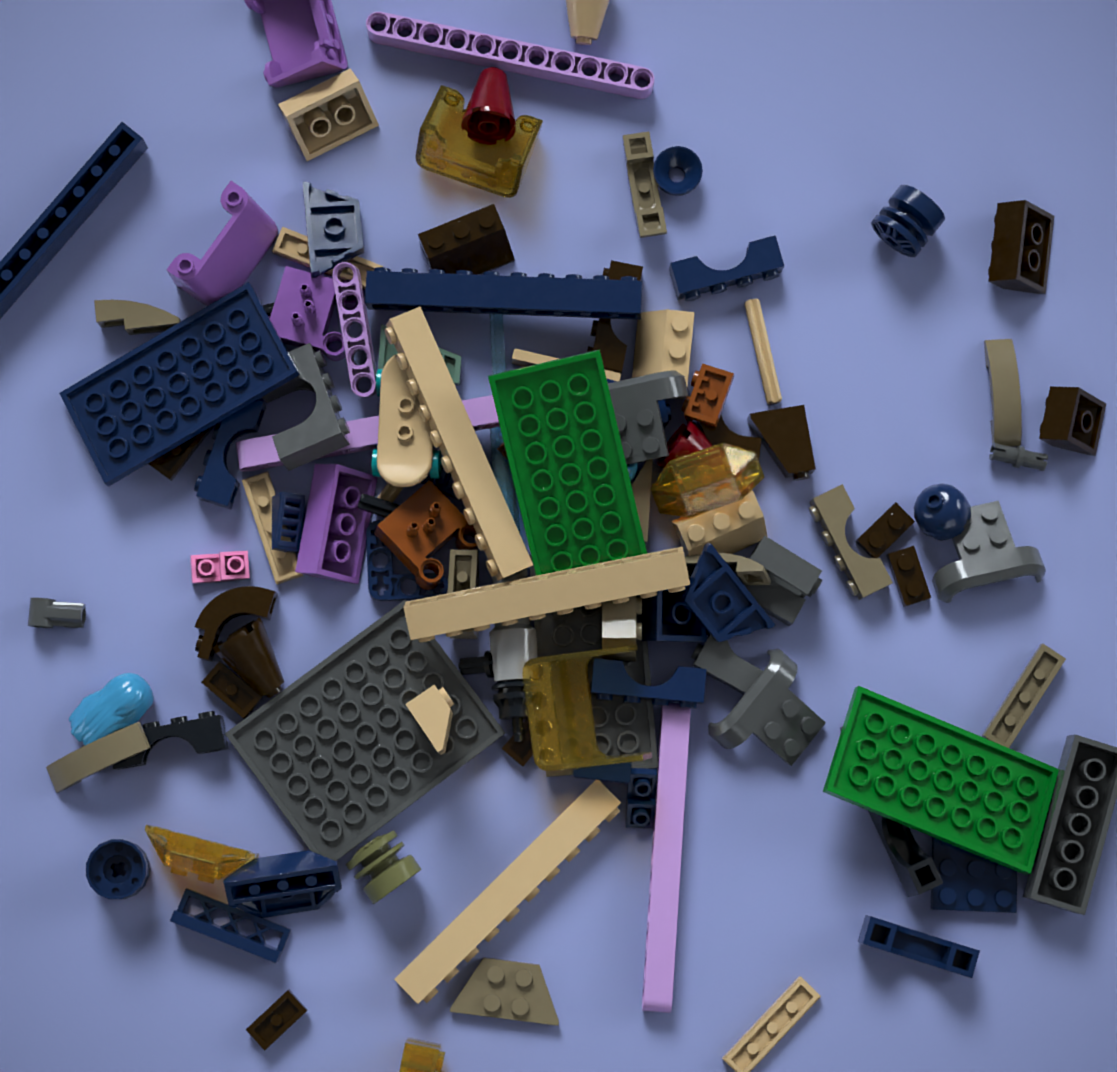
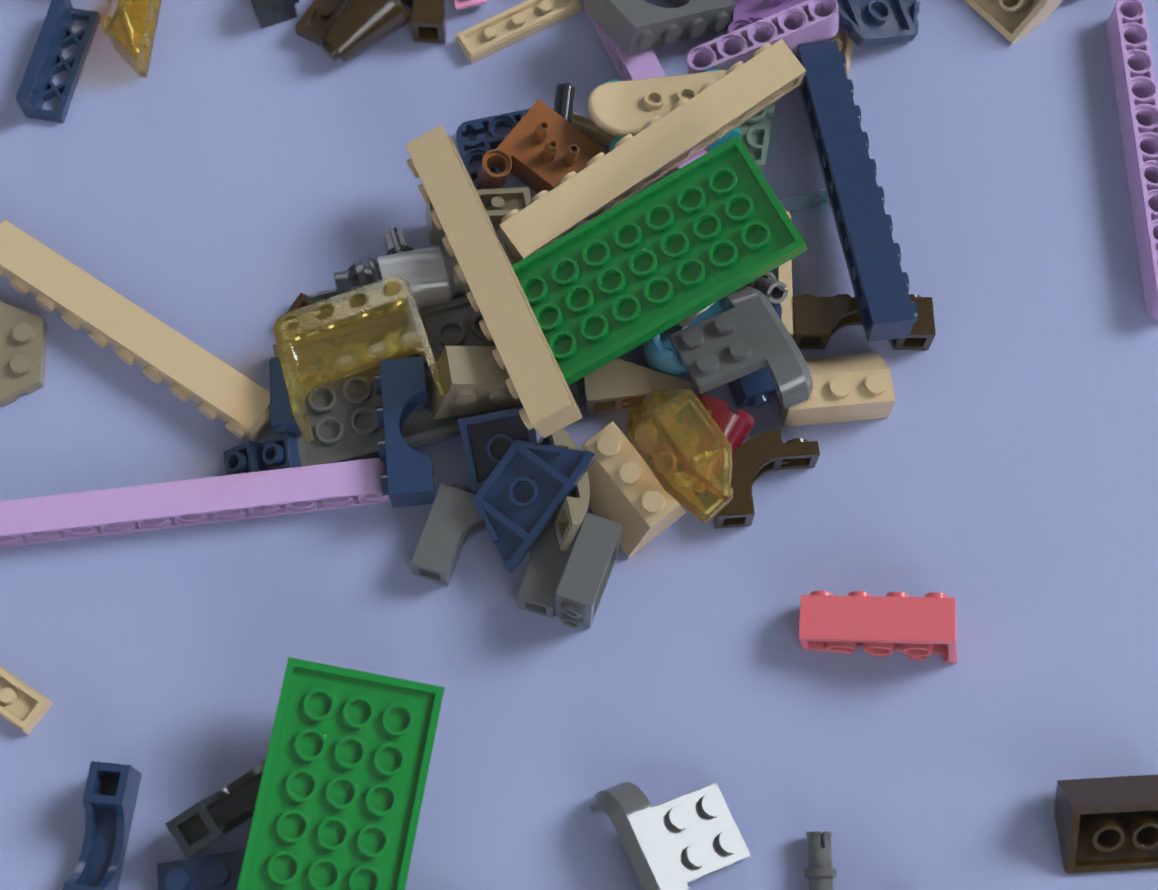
camera: 85 degrees right, 15 degrees down
(283, 884) = (107, 89): dark blue wedge -> none
(297, 508) = (552, 22): dark blue slope -> none
(334, 525) = (518, 74): medium lavender slope -> none
(344, 745) = (291, 151): dark grey plate -> none
(383, 866) = (143, 180): olive wheel -> none
(433, 715) = (313, 186): tan slope -> none
(450, 153) = (1022, 132): clear yellow windscreen -> none
(468, 243) = (905, 147): dark brown slope -> none
(490, 109) = (1072, 136): dark red cone -> none
(642, 185) = (1040, 328): dark tan slope -> none
(679, 158) = (1077, 347): dark blue piece -> none
(693, 277) = (987, 476): dark blue arch -> none
(708, 395) = (792, 433): dark orange bracket -> none
(763, 351) = (870, 506): tan axle -> none
(771, 713) = (396, 596): dark grey piece -> none
(786, 439) = (763, 552): dark brown slope -> none
(859, 371) = (880, 624): none -> coral wedge
(863, 573) = (680, 630): dark tan arch -> none
(885, 531) = (671, 707): dark brown plate -> none
(908, 220) = (1112, 653): dark blue wheel -> none
(908, 576) = (616, 750): dark brown plate -> none
(942, 511) = (715, 771): dark blue cylinder -> none
(1005, 392) = (906, 835): dark tan slope -> none

